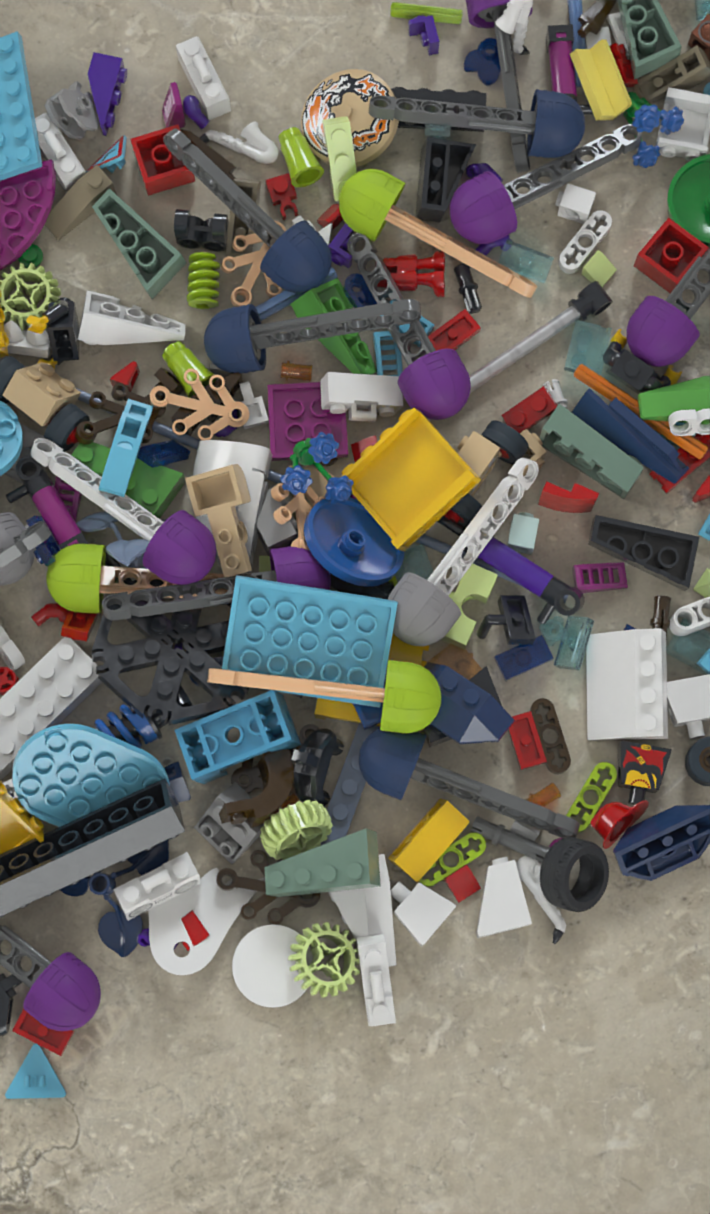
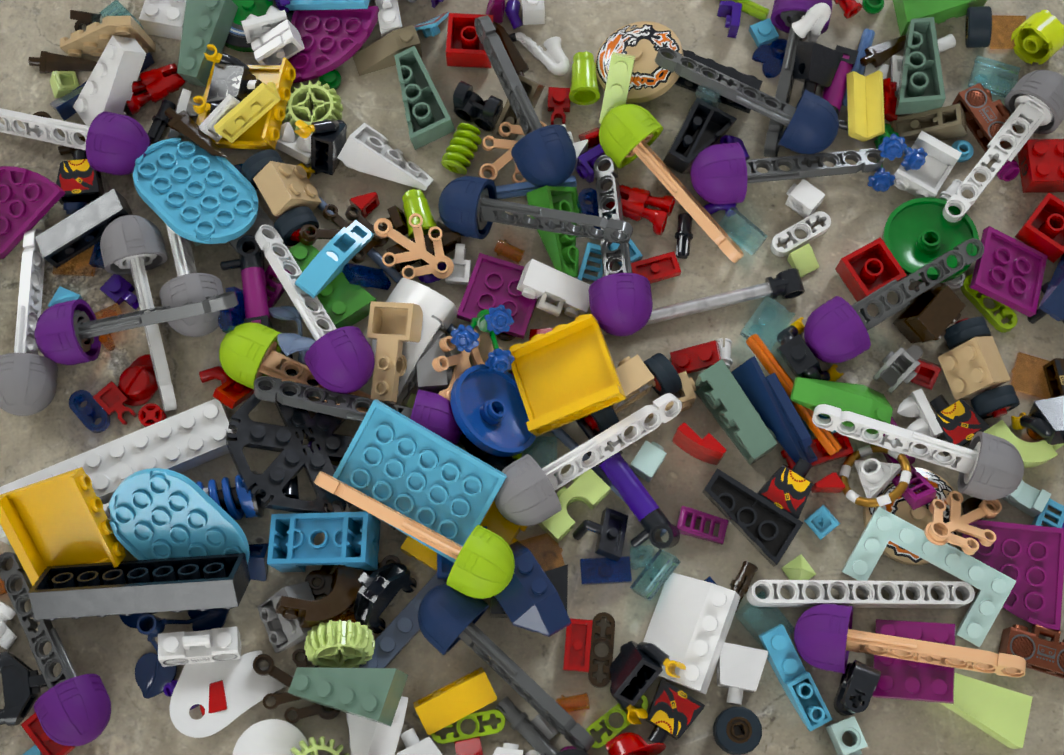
camera: 20 degrees right, 5 degrees down
(465, 37) = (763, 32): none -> medium azure plate
(535, 58) = (815, 65): none -> black torso
(592, 745) = (635, 672): none -> black torso
(671, 507) = (789, 487): none -> torso

